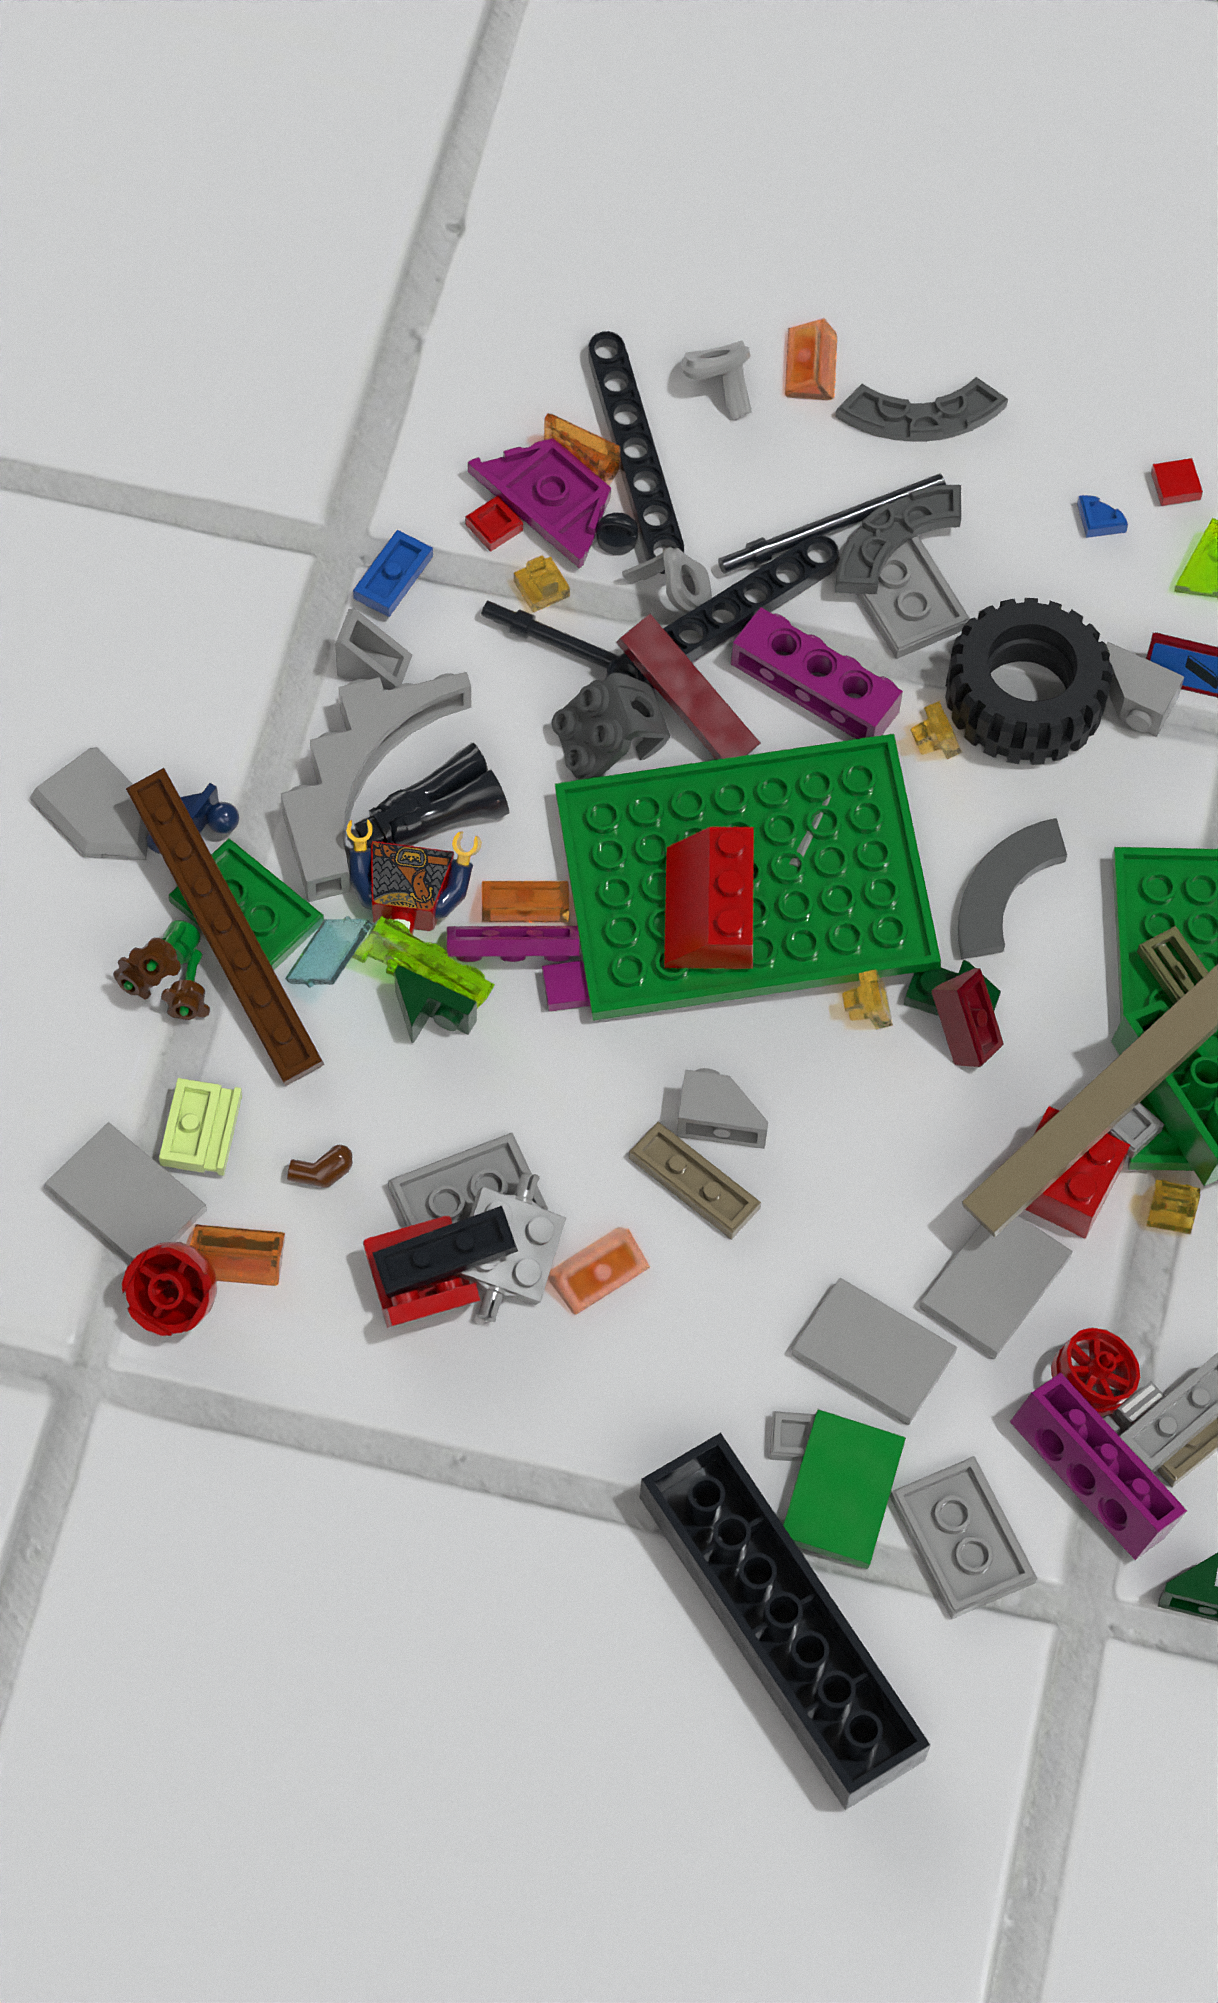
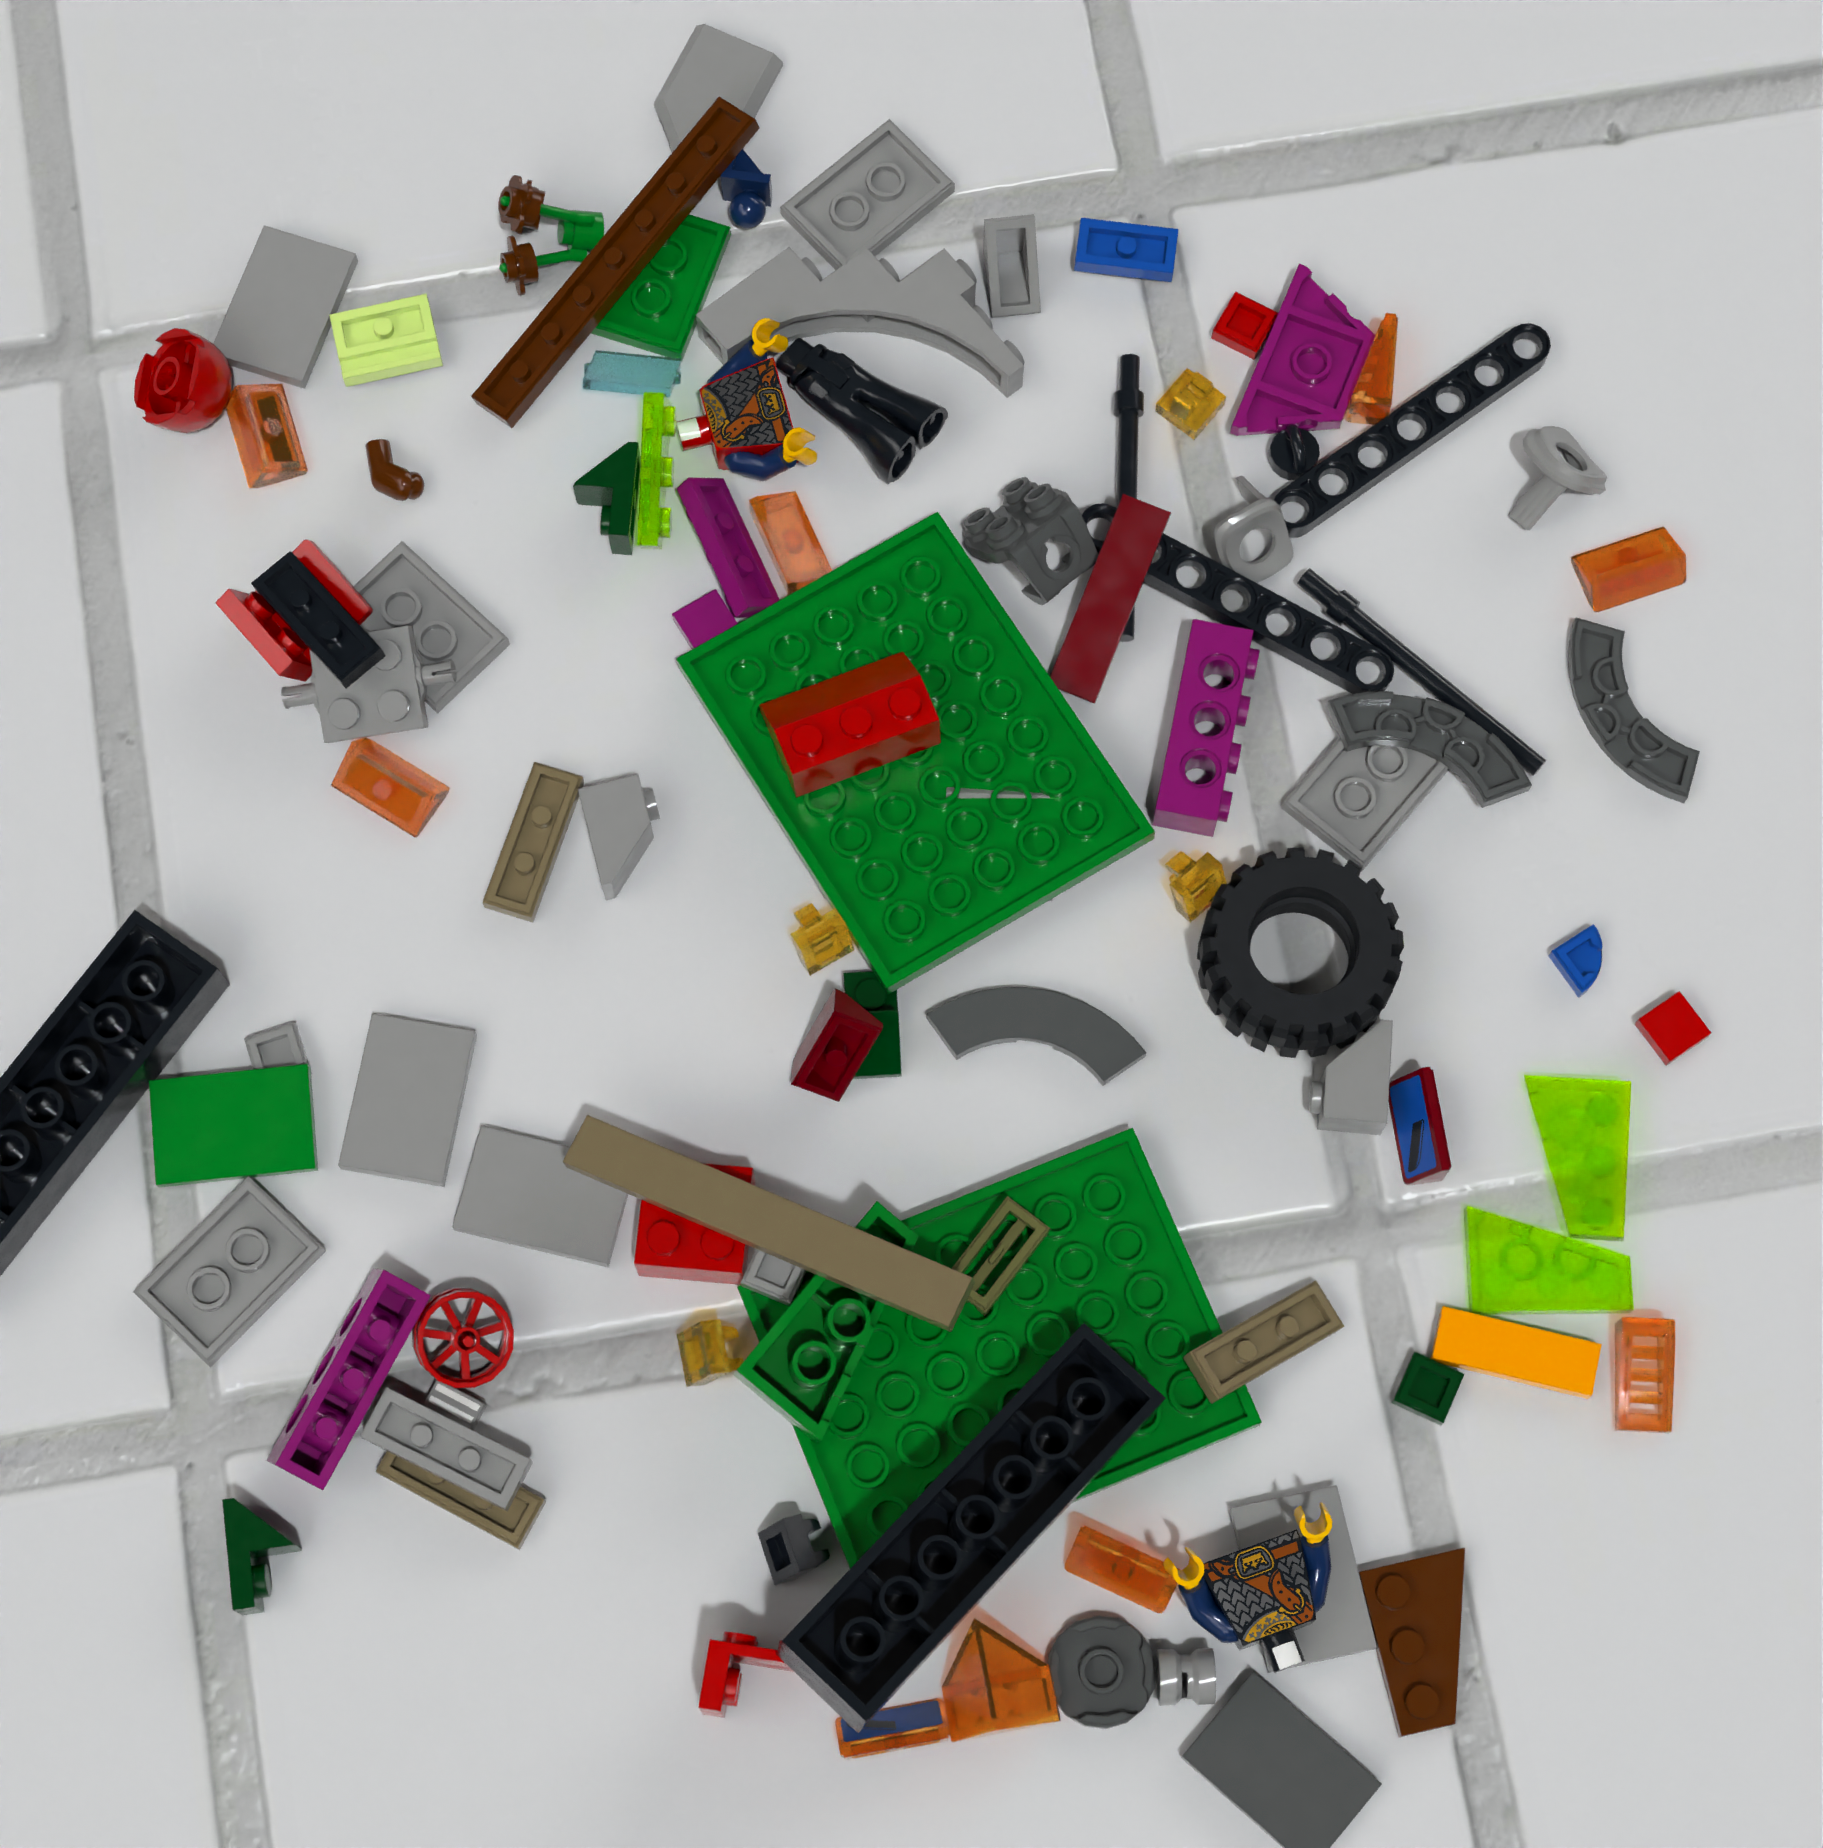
camera: 70 degrees right, 10 degrees up
(252, 735) = (868, 197): none -> light grey tile

